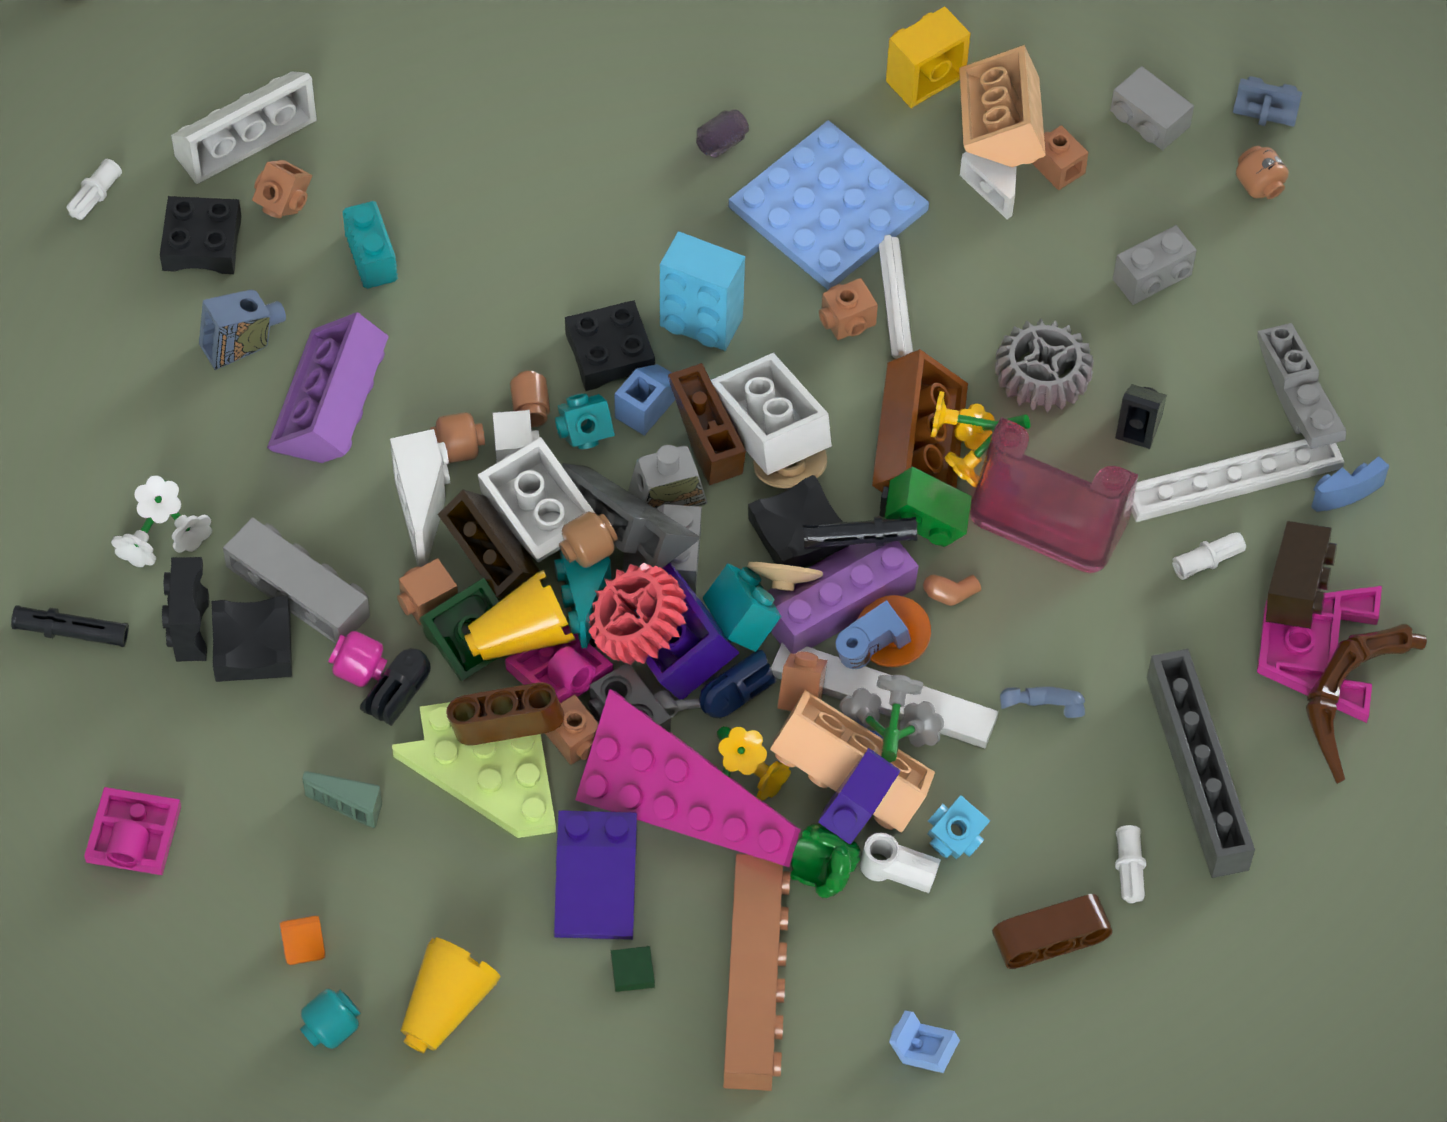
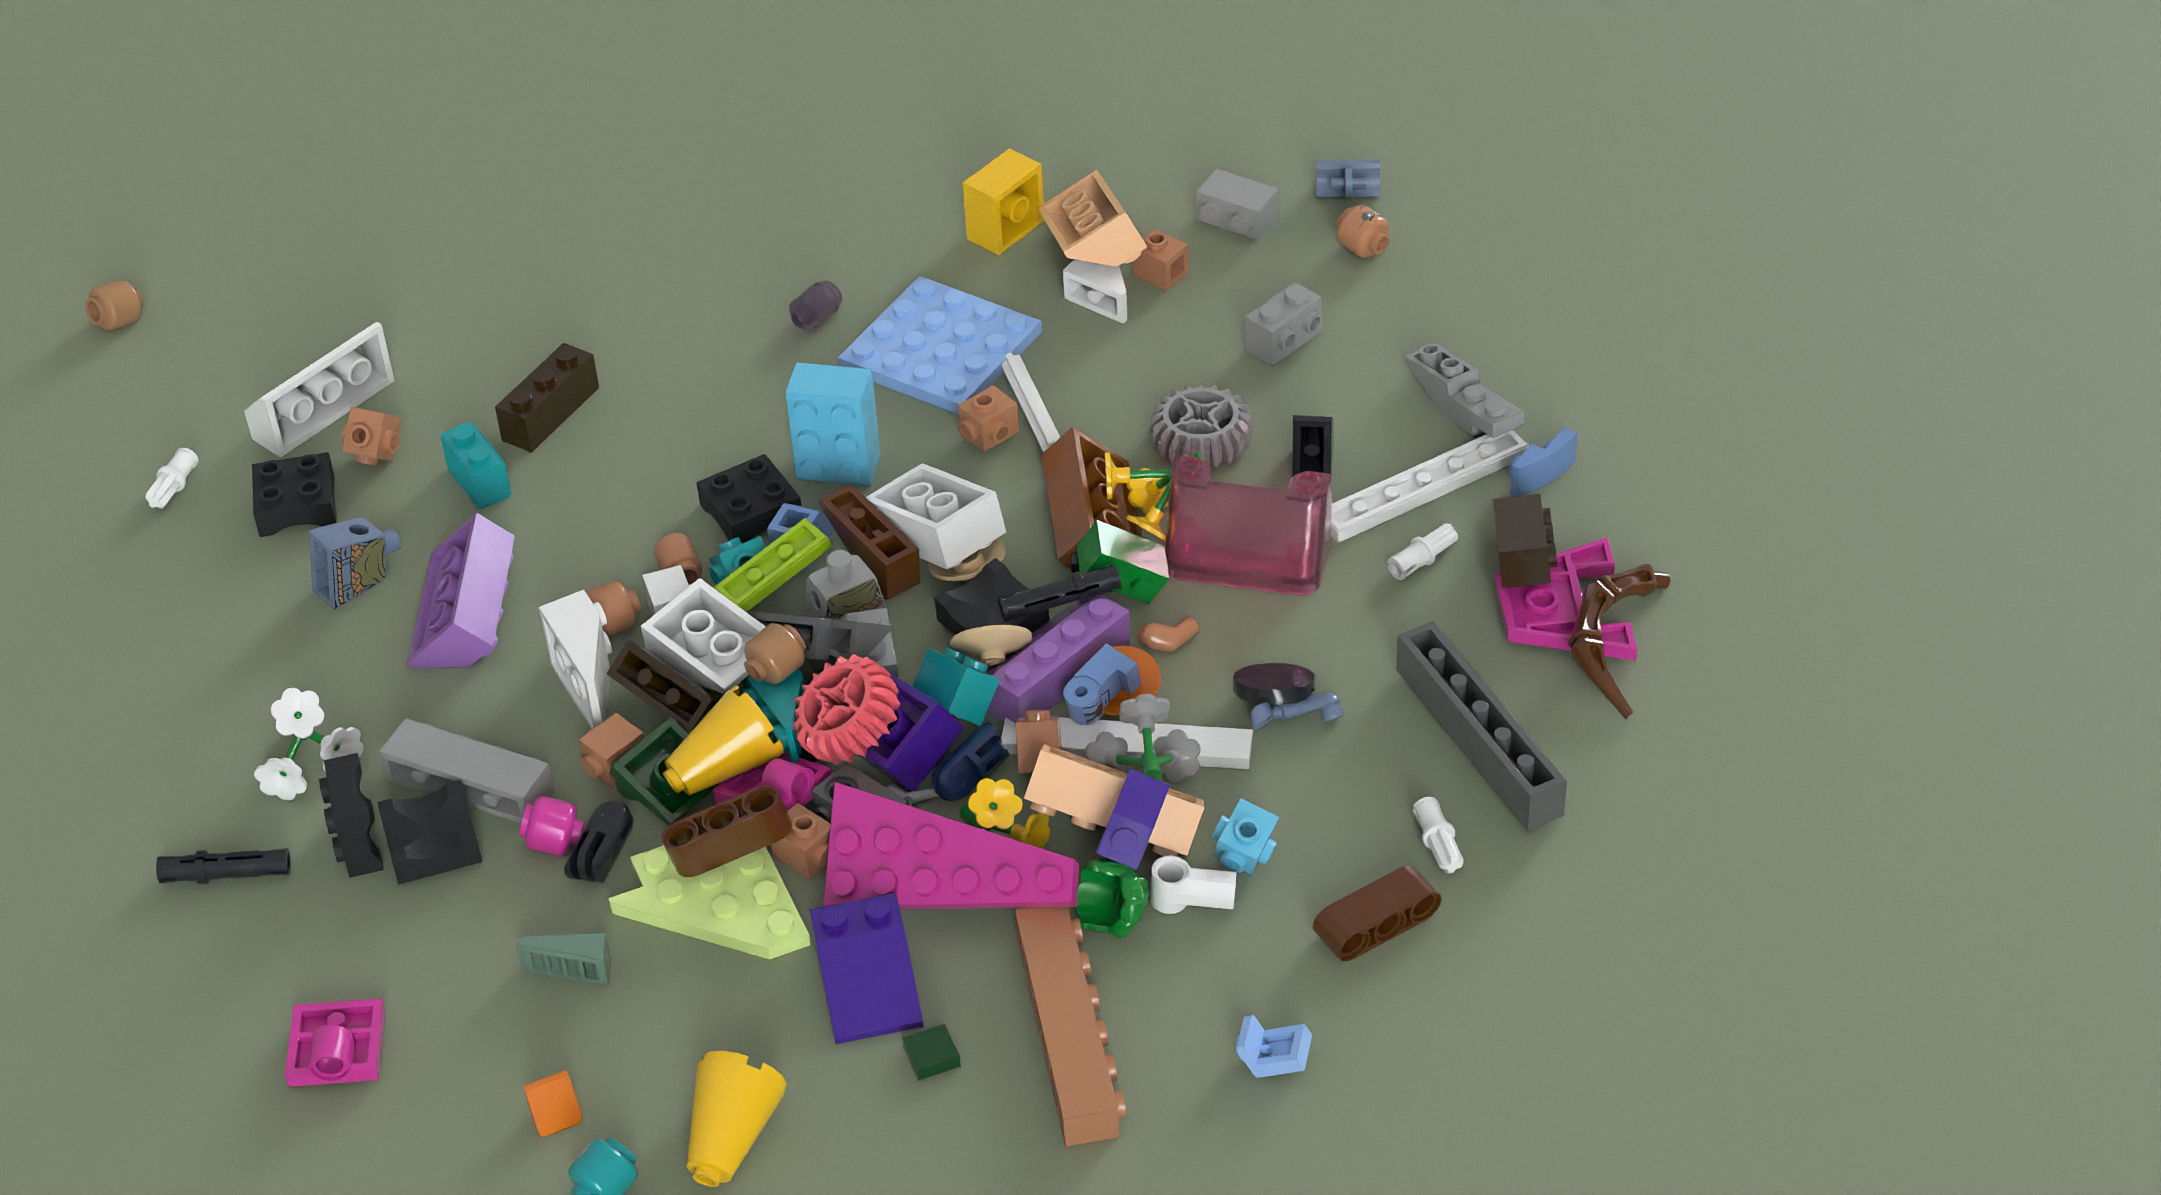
camera: 10 degrees left, 15 degrees down
(450, 182) = (547, 397): none -> dark brown brick
(609, 438) = (774, 565): none -> lime tile
(1030, 669) = (1277, 681): none -> black tile

